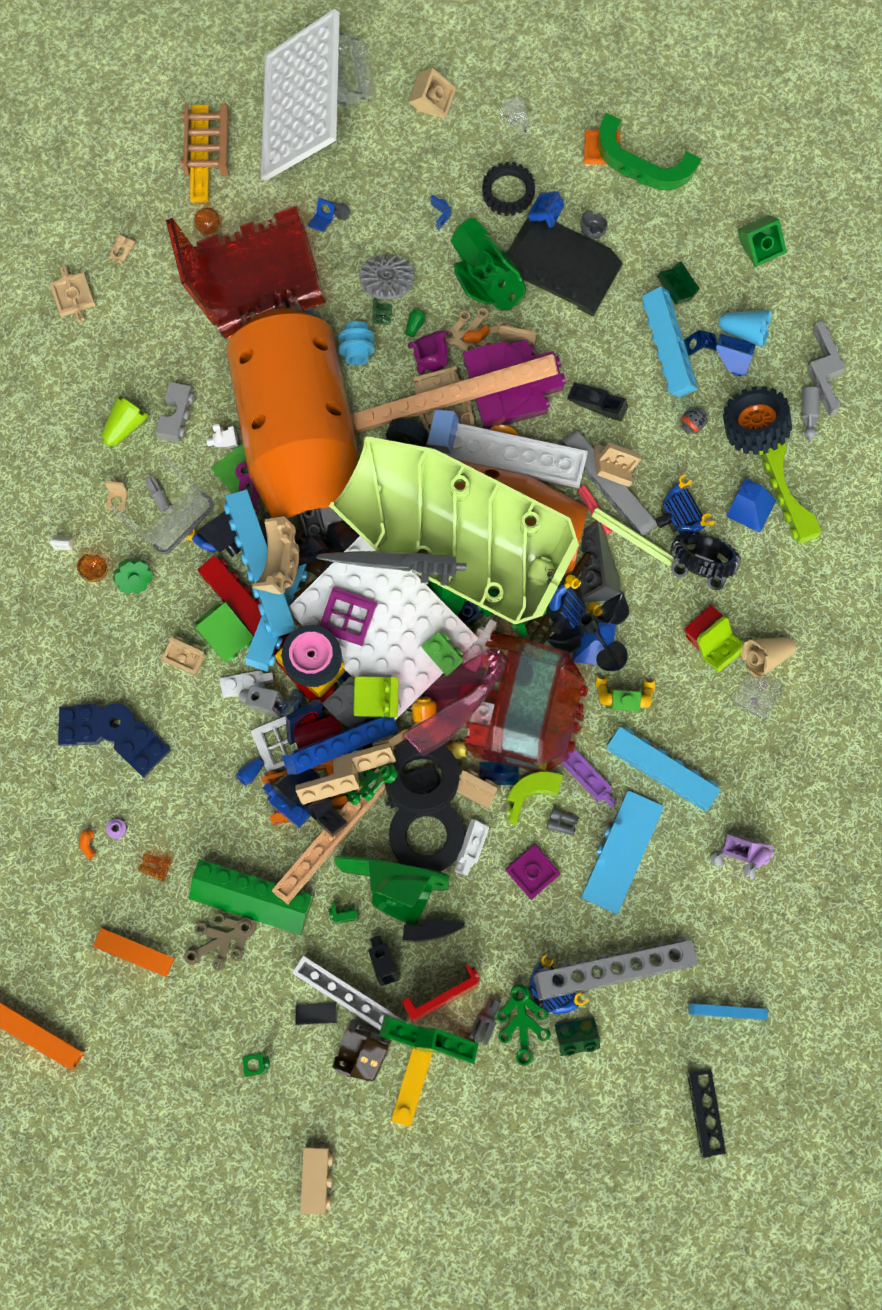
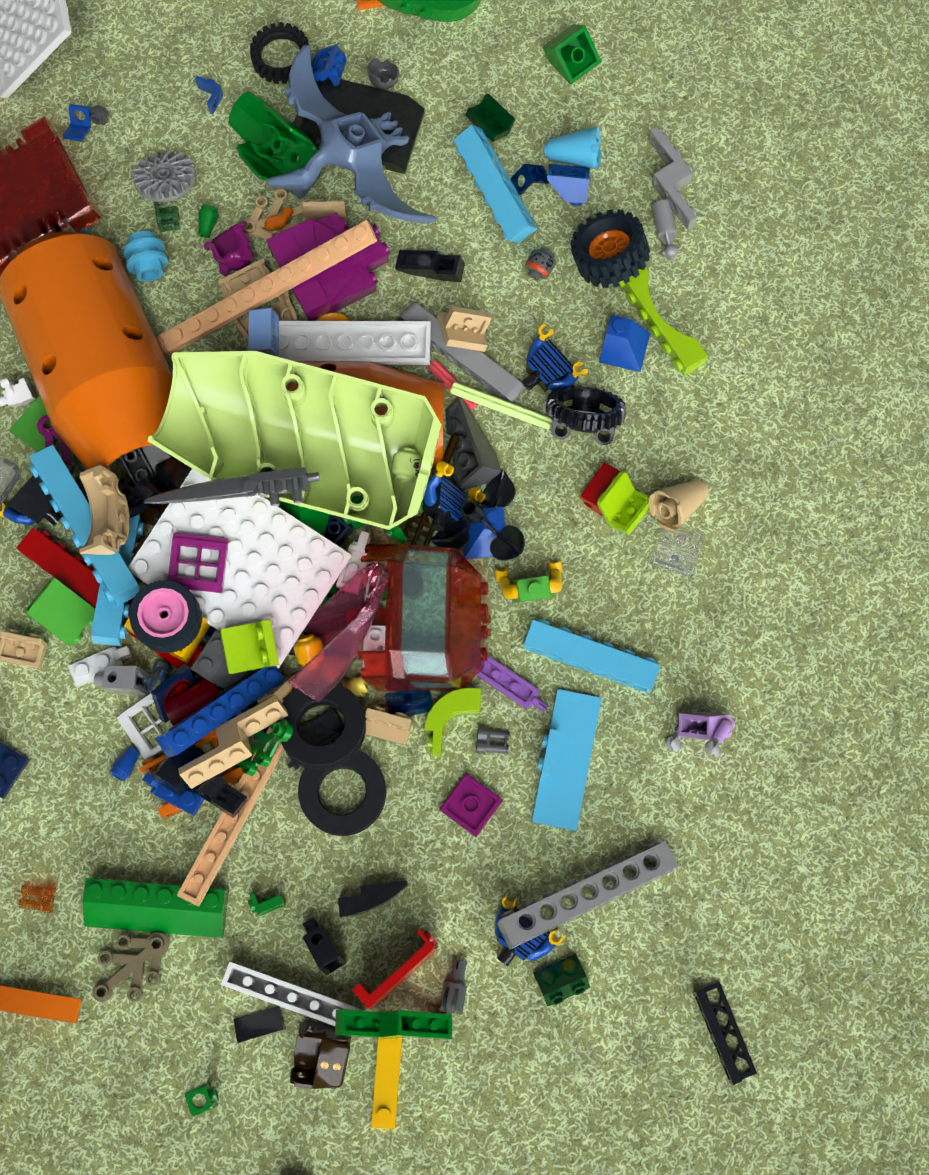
camera: 15 degrees left, 0 degrees up
(396, 887) = (320, 859): green piece -> none
(407, 432) = (223, 340): black wheel -> none
(443, 653) = (315, 580): bright green bracket -> none
(471, 846) = (396, 792): white hinge -> none
(522, 1020) = (496, 978): green plant -> none
(550, 281) = (347, 142): none -> sand blue animal
(728, 1011) = (723, 912): dark azure beam -> none

